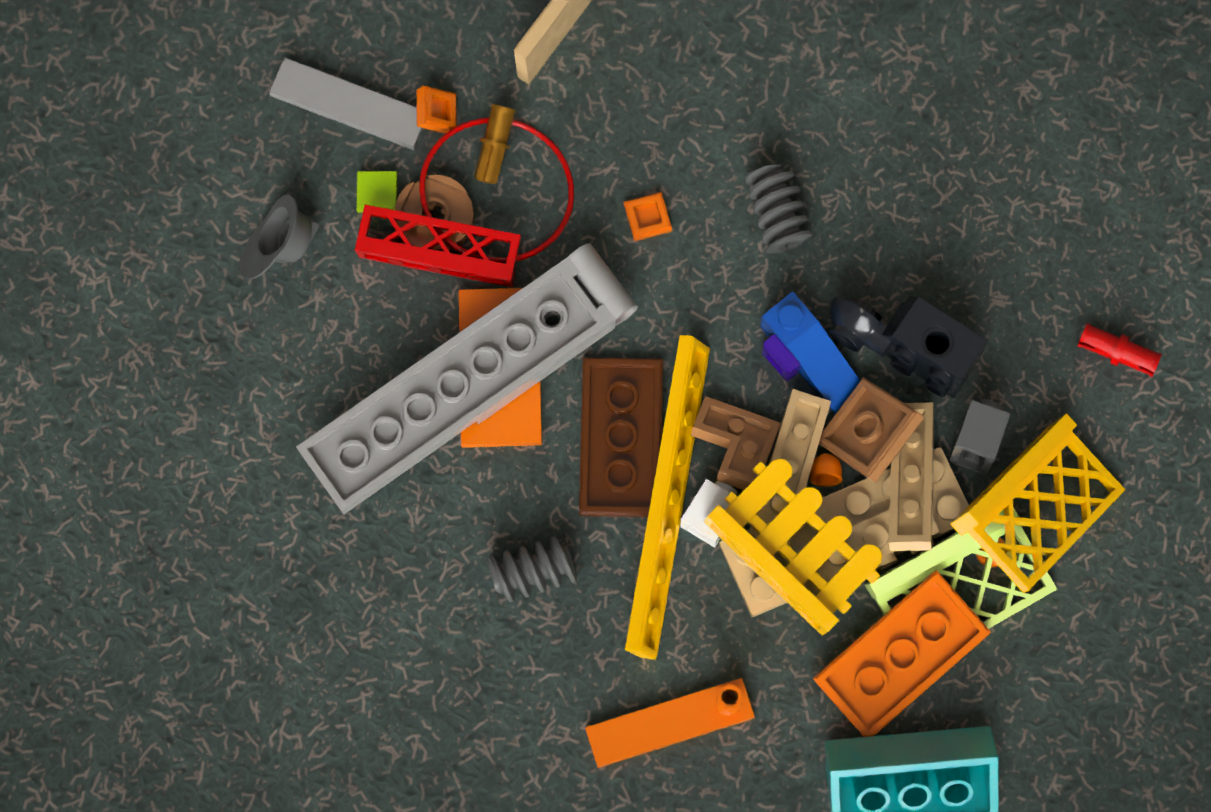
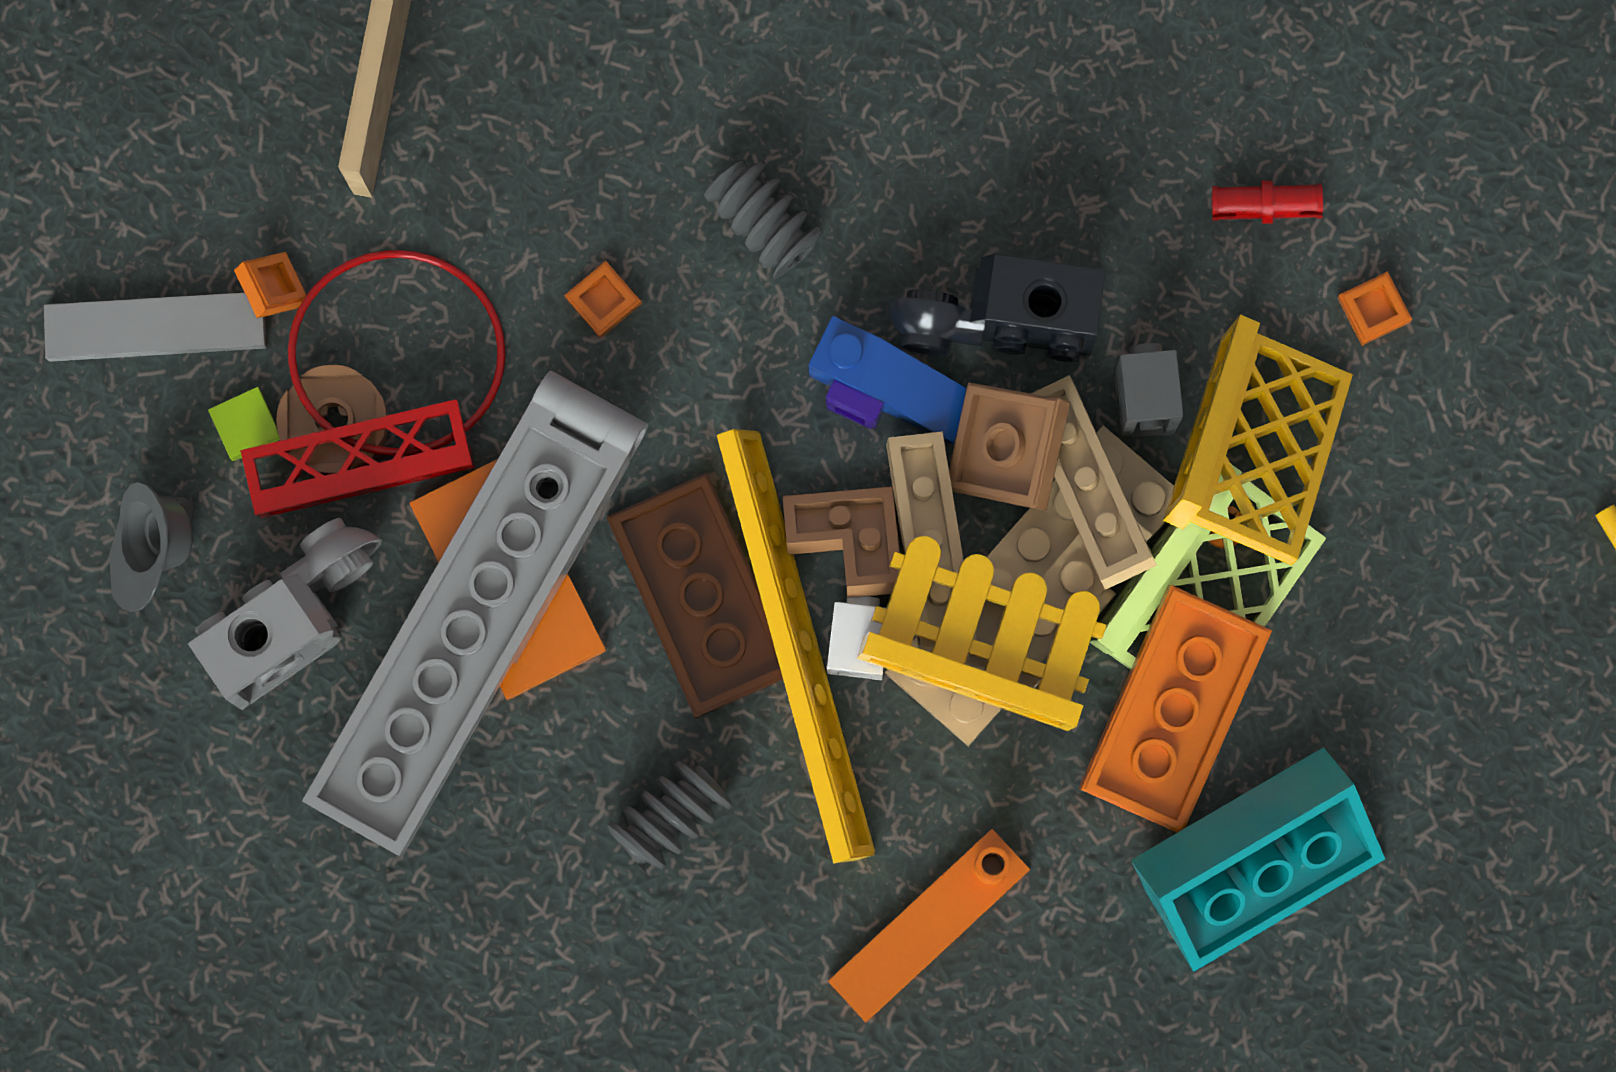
camera: 25 degrees left, 5 degrees up
(344, 323) = (290, 612): none -> light grey brick
(494, 144) = (366, 295): pearl gold axle -> none
(826, 470) = (976, 520): orange hinge -> none
(1160, 453) = (1374, 308): none -> orange tile

